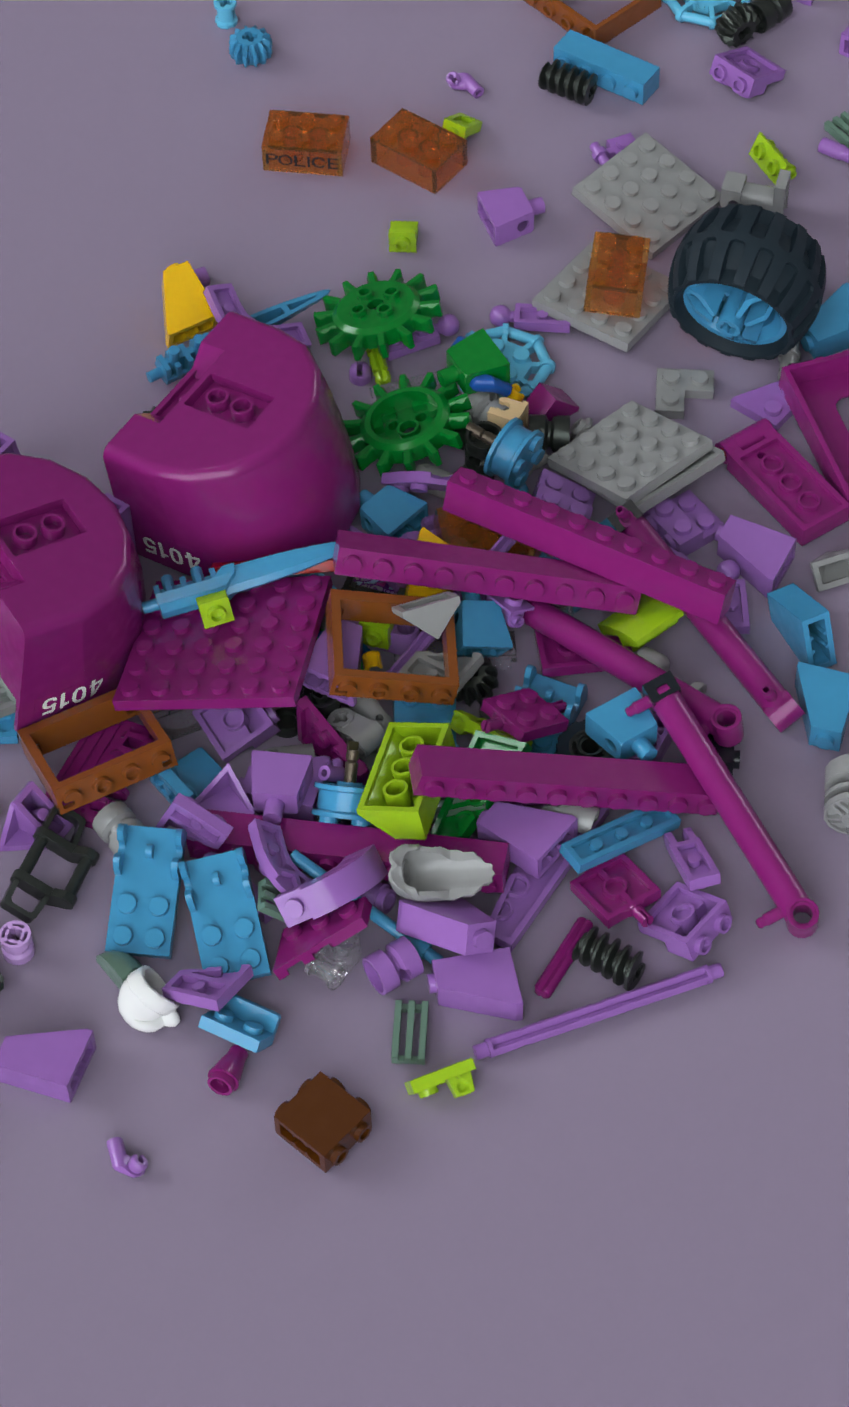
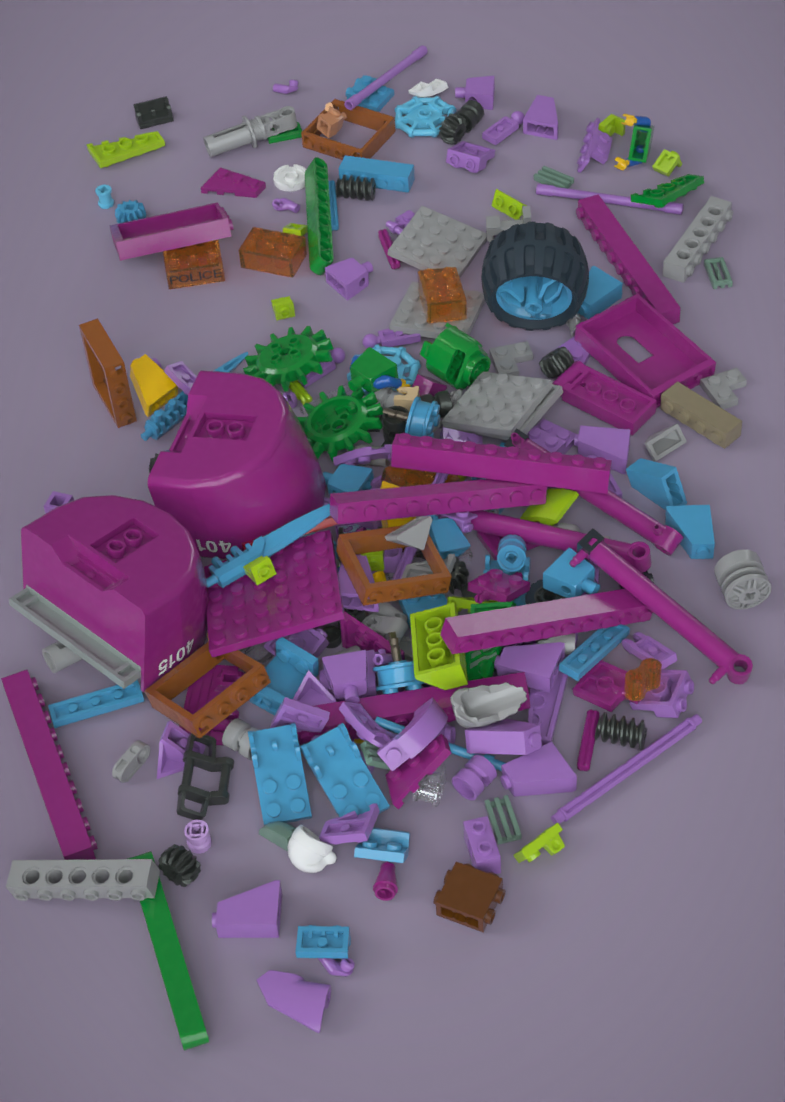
camera: 15 degrees left, 5 degrees down
(58, 1186) = (296, 997): none -> medium lavender panel
(117, 1126) = (323, 941): none -> dark azure bracket
(126, 276) = (109, 383): none -> dark orange window
(209, 751) = (290, 667): none -> dark azure bracket
(289, 86) = (171, 231): none -> magenta panel
(366, 1060) = (482, 845): none -> medium lavender brick
(407, 32) = (231, 182): none -> magenta wing
(488, 43) = (290, 178): none -> white tile
(501, 112) = (318, 216): none -> green beam
(527, 101) = (333, 206): none -> dark azure axle
(561, 672) = (513, 548): none -> dark azure wheel
(579, 174) = (386, 242): none -> magenta axle
(599, 371) = (455, 357): none -> green piece
(660, 897) = (642, 679): none -> clear orange axle
(737, 413) = (556, 362): none -> pearl dark grey gear
(811, 39) = (503, 128): none -> medium lavender plate

